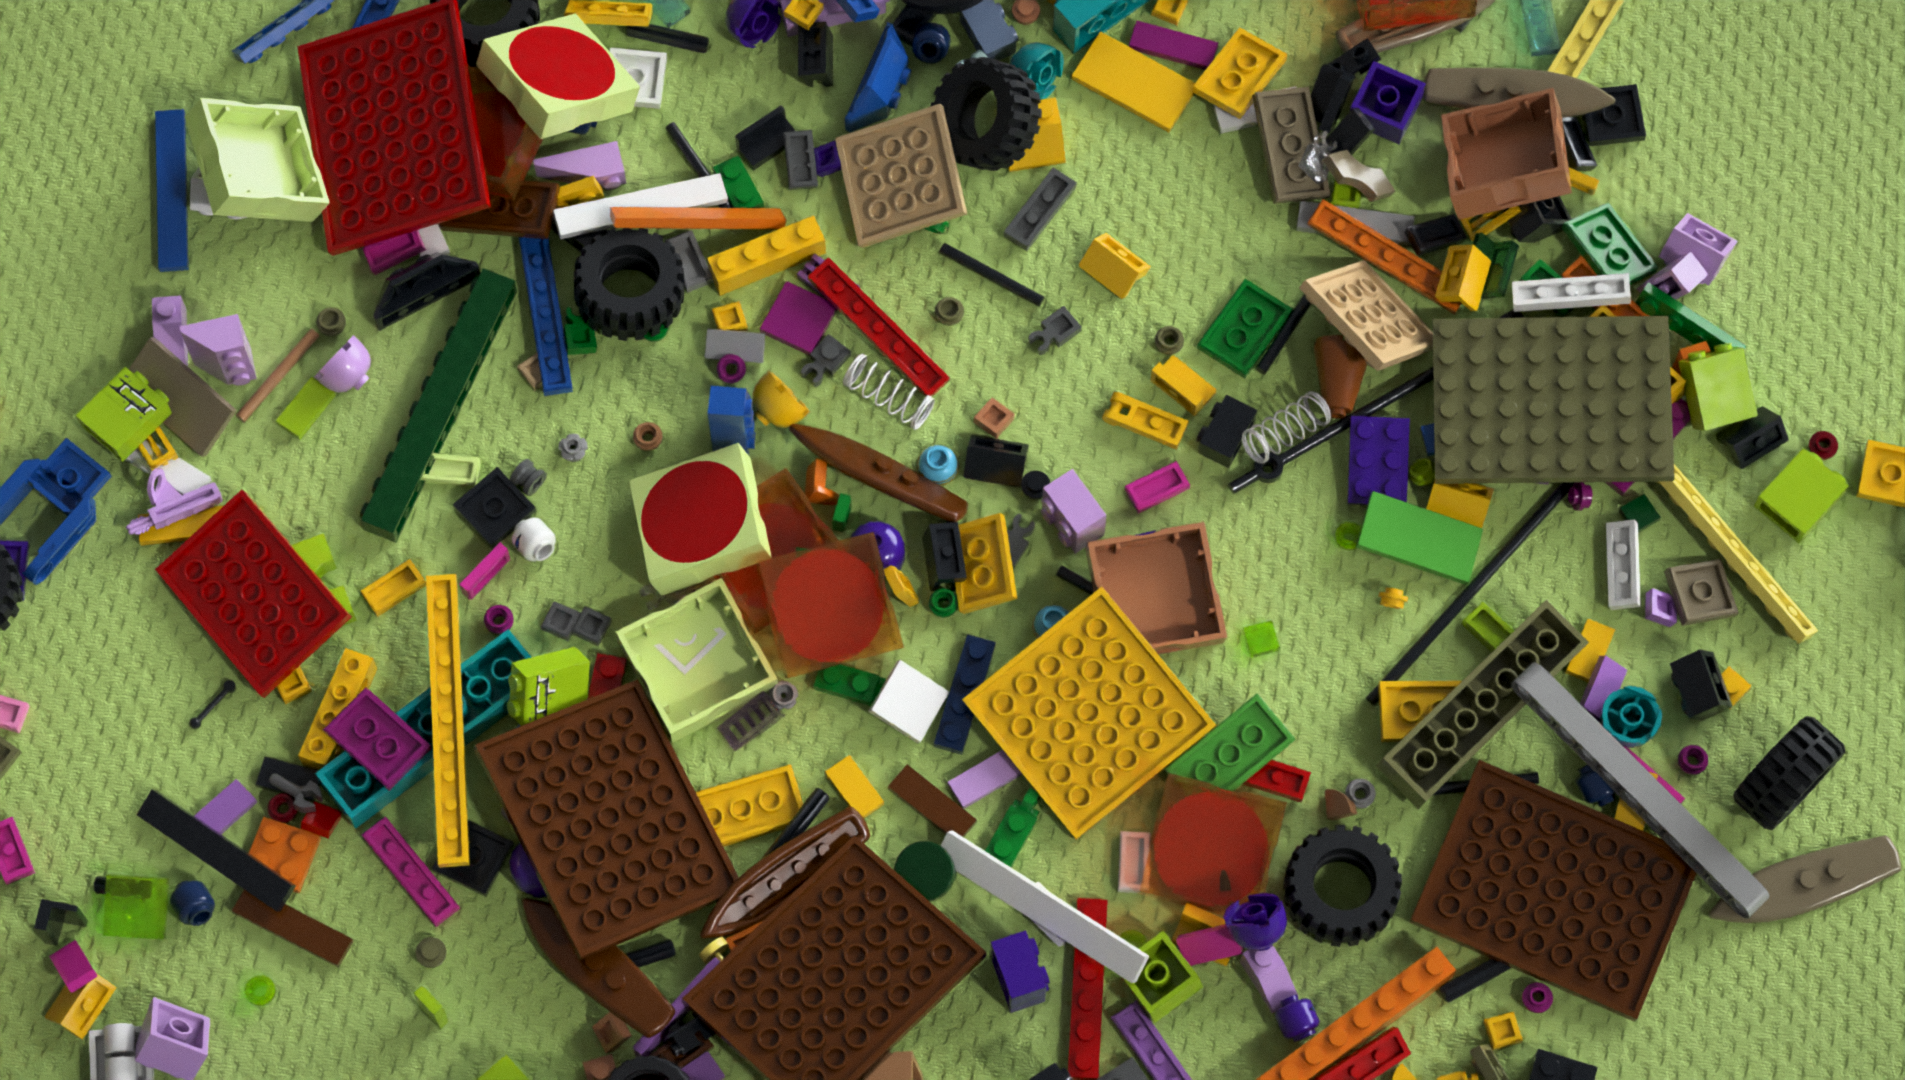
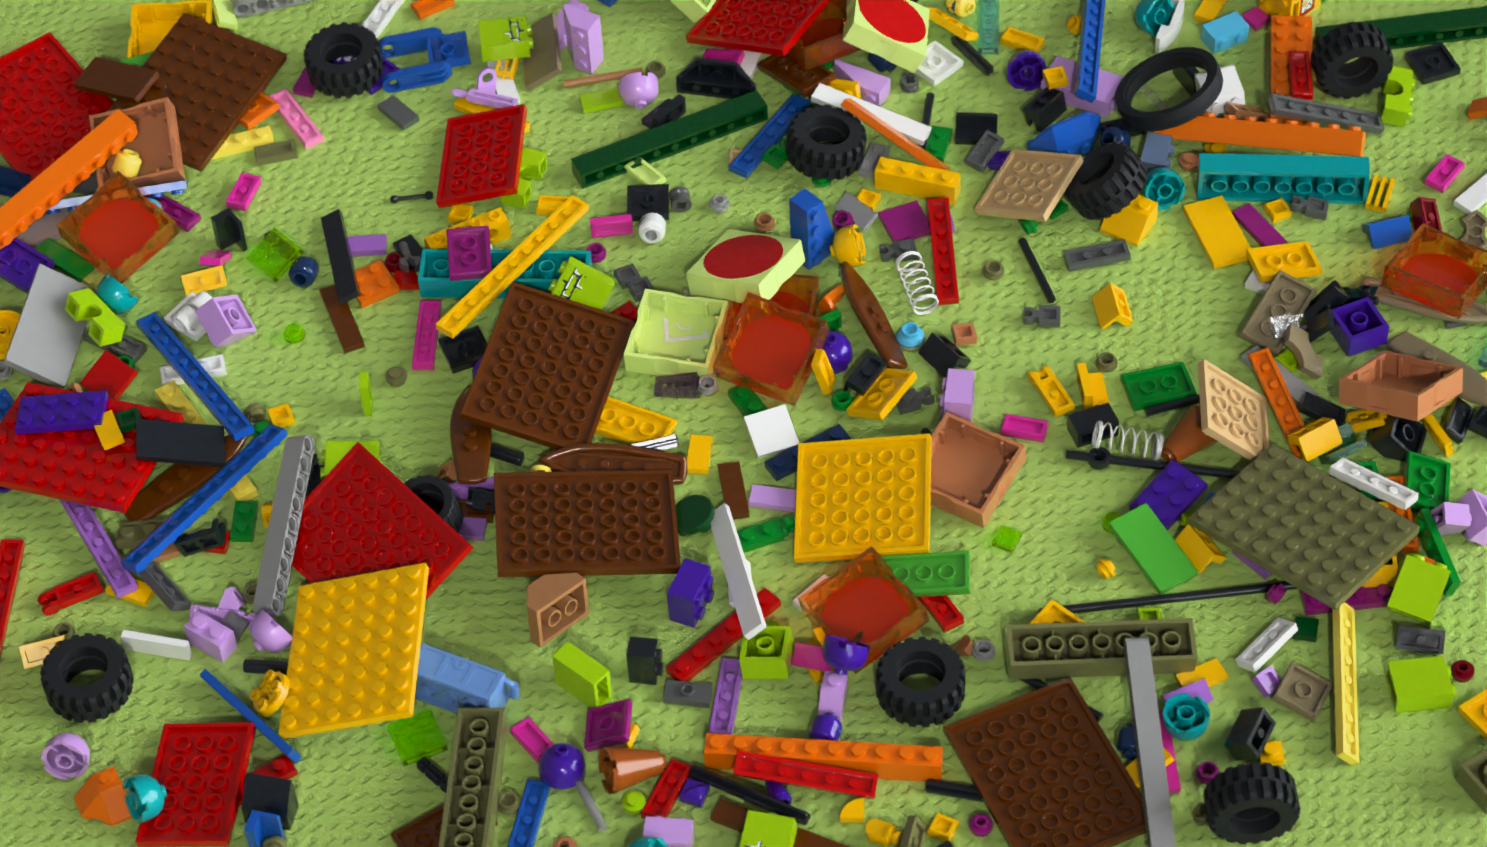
camera: 45 degrees right, 20 degrees down
(83, 602) = (398, 112): none -> dark grey tile
(396, 373) = (665, 112): none -> black panel
(625, 130) = (909, 83): none -> dark grey bush
(1724, 814) = (1199, 814): none -> olive plate

